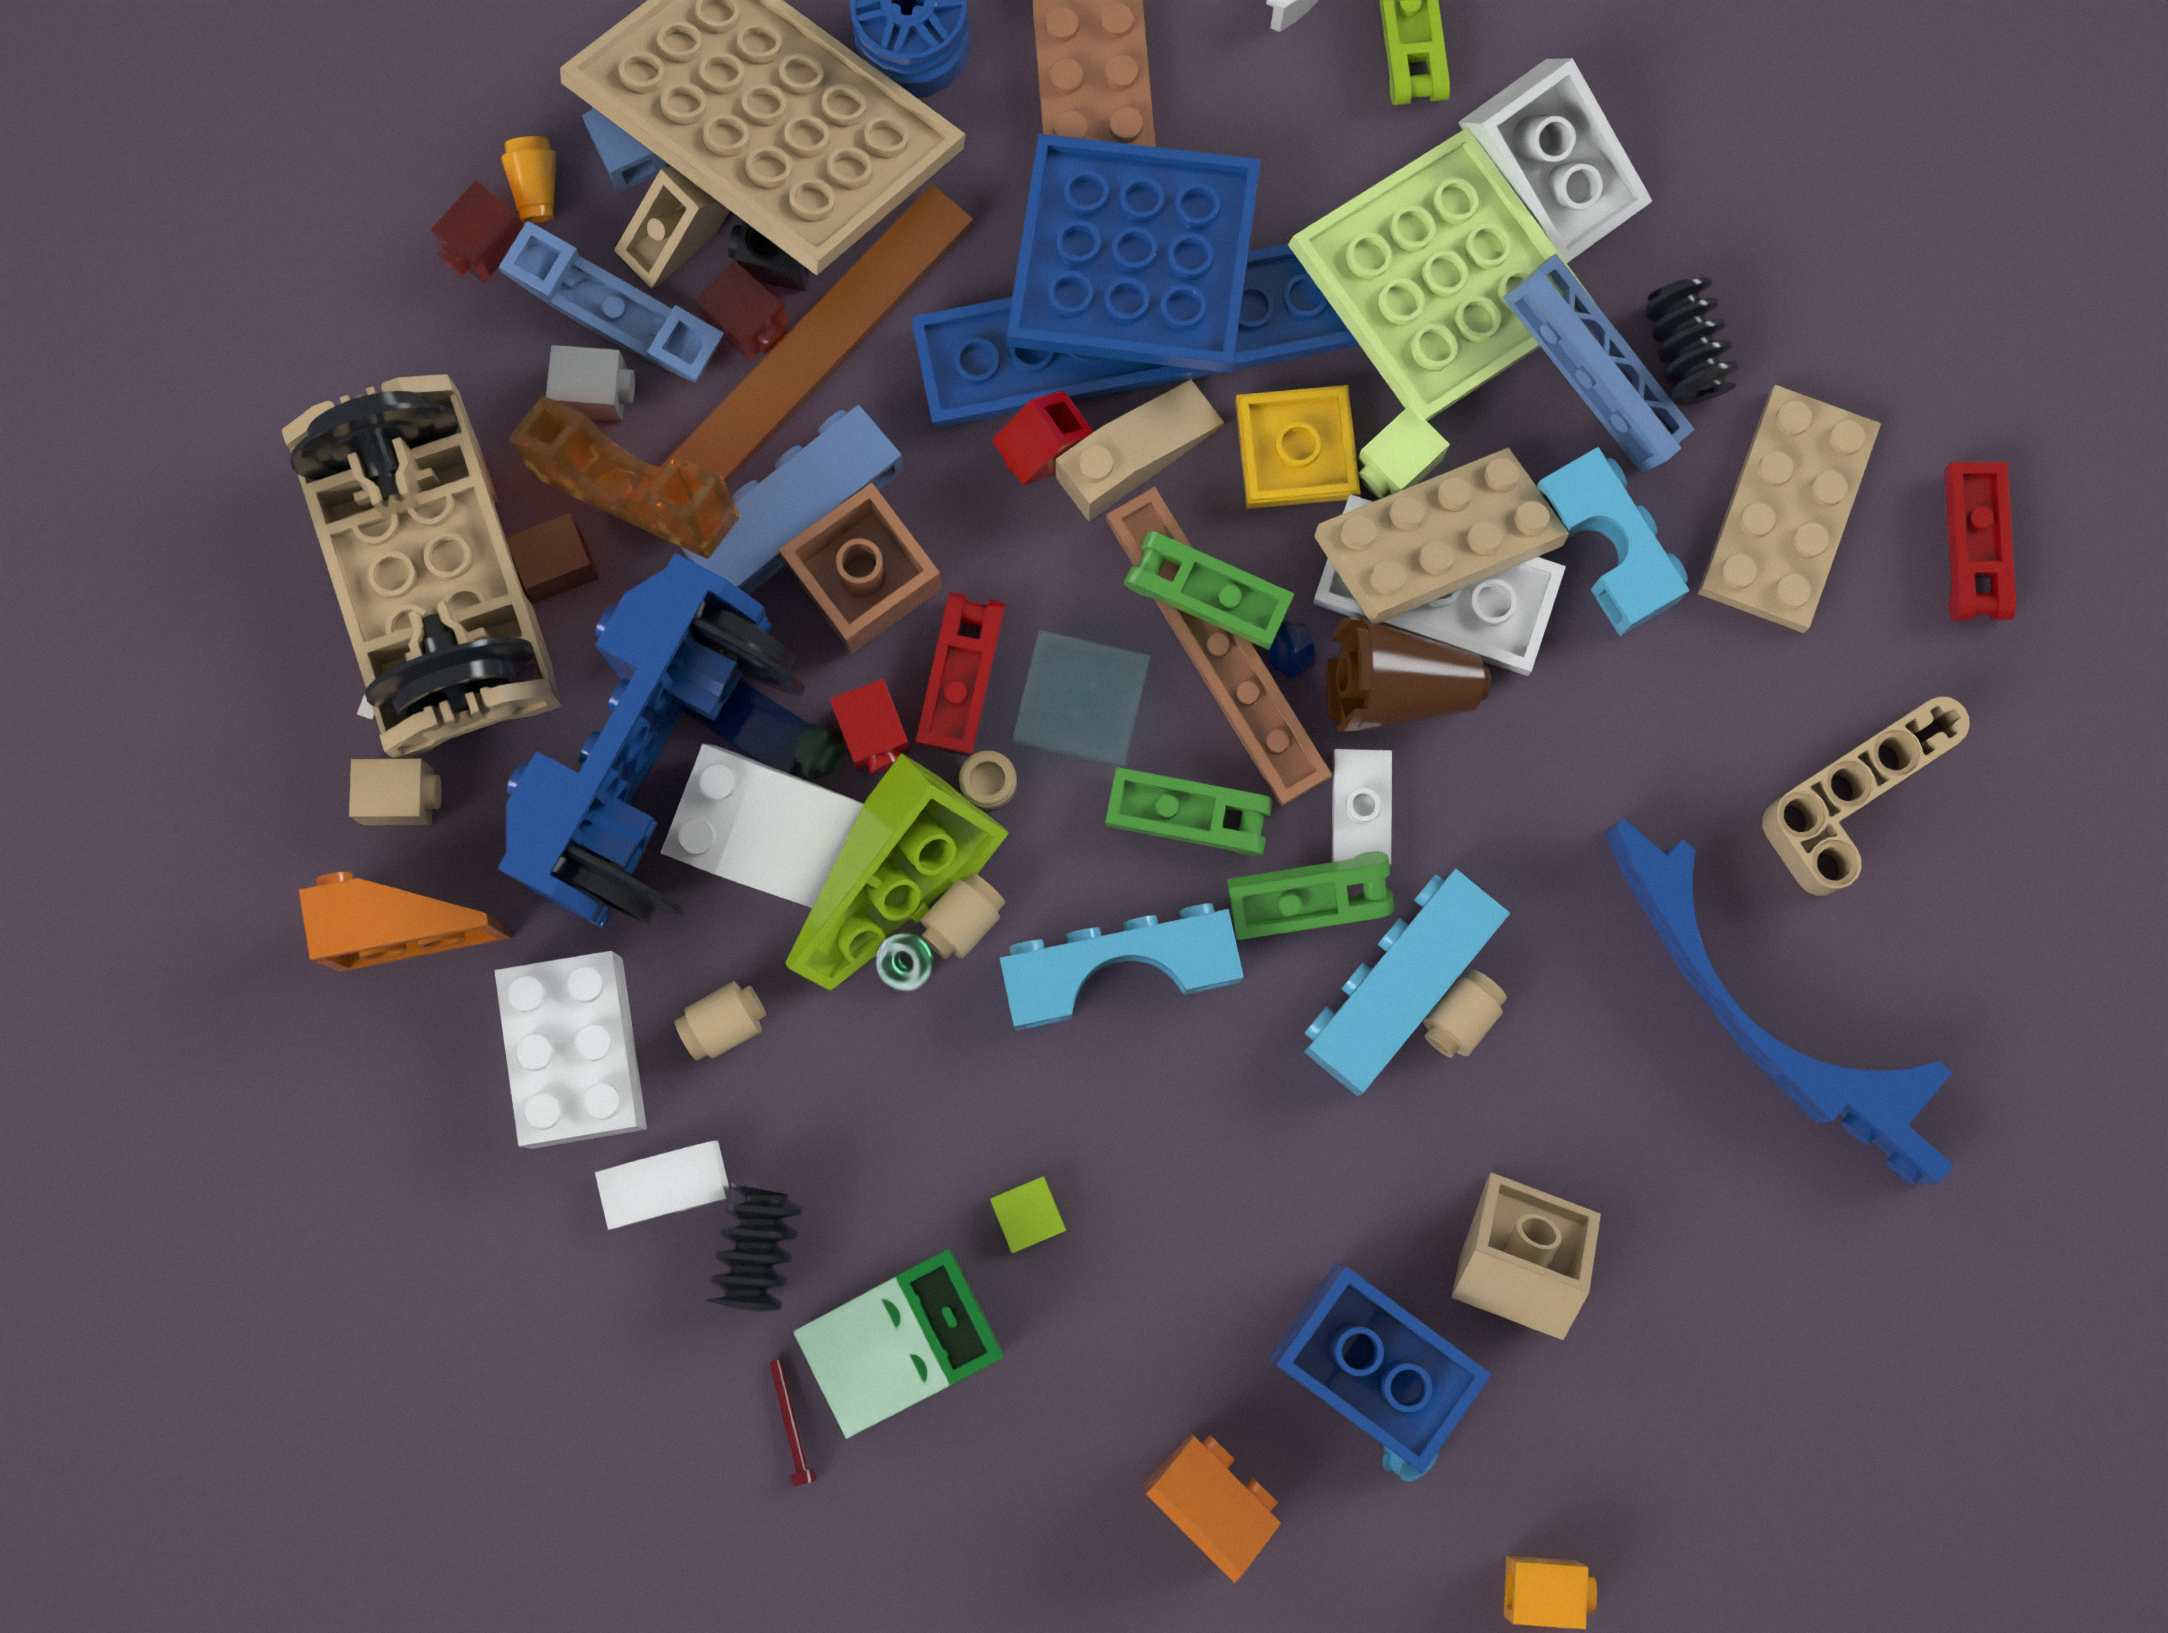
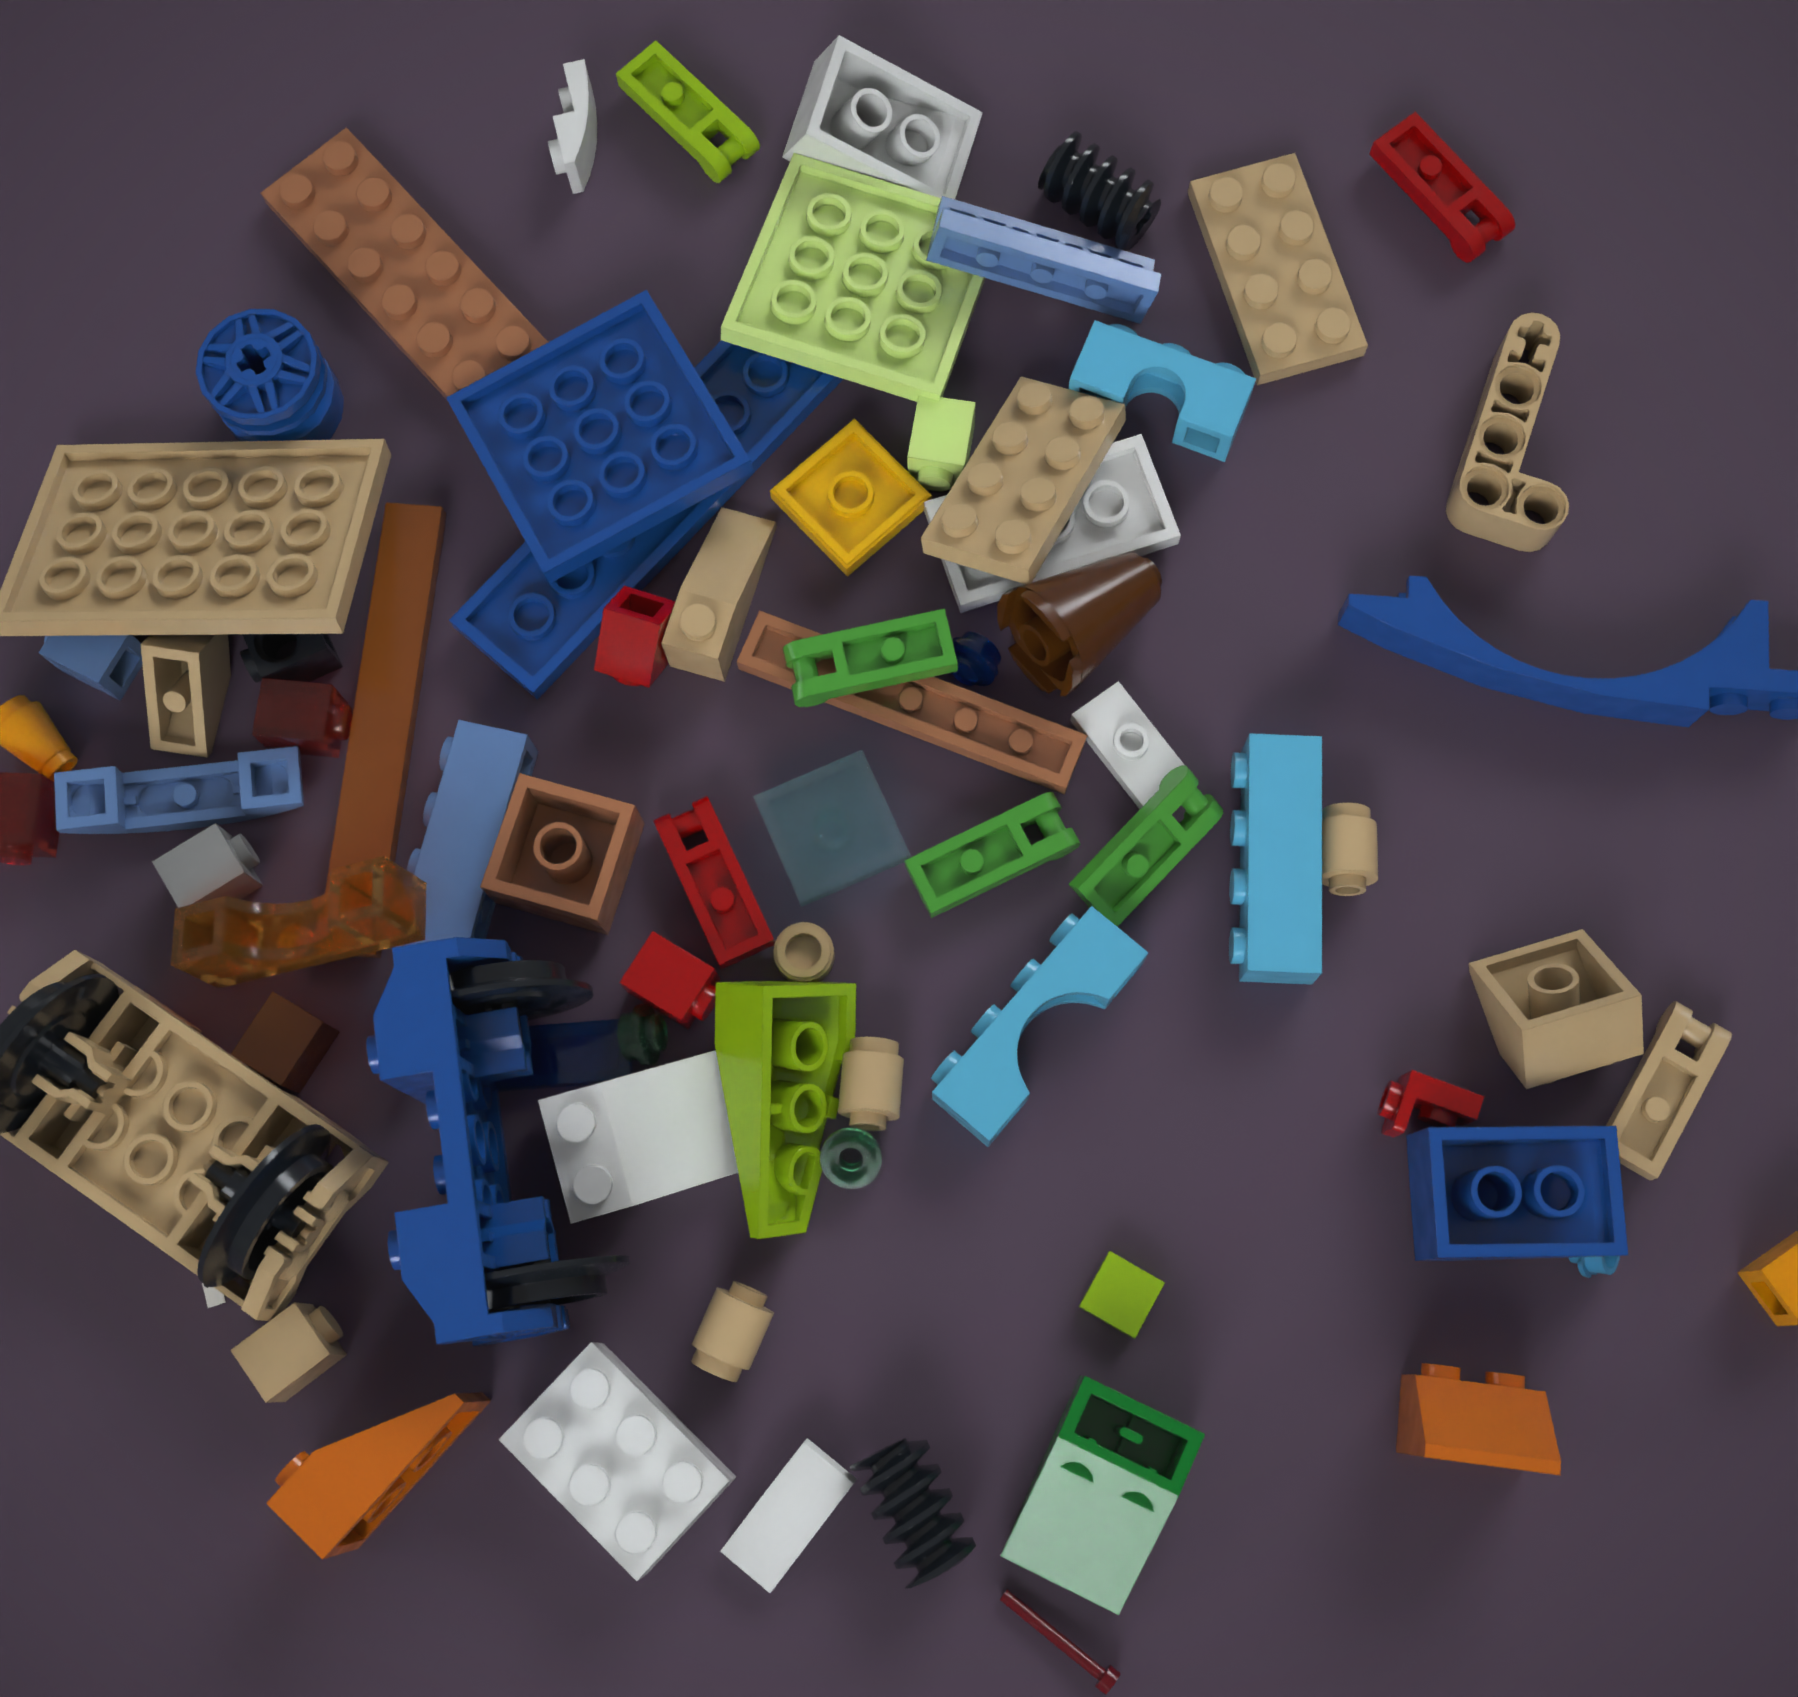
camera: 30 degrees left, 5 degrees down
(1377, 1257) = (1438, 1102): none -> red bracket
(1559, 1380) = (1665, 1090): none -> tan plate

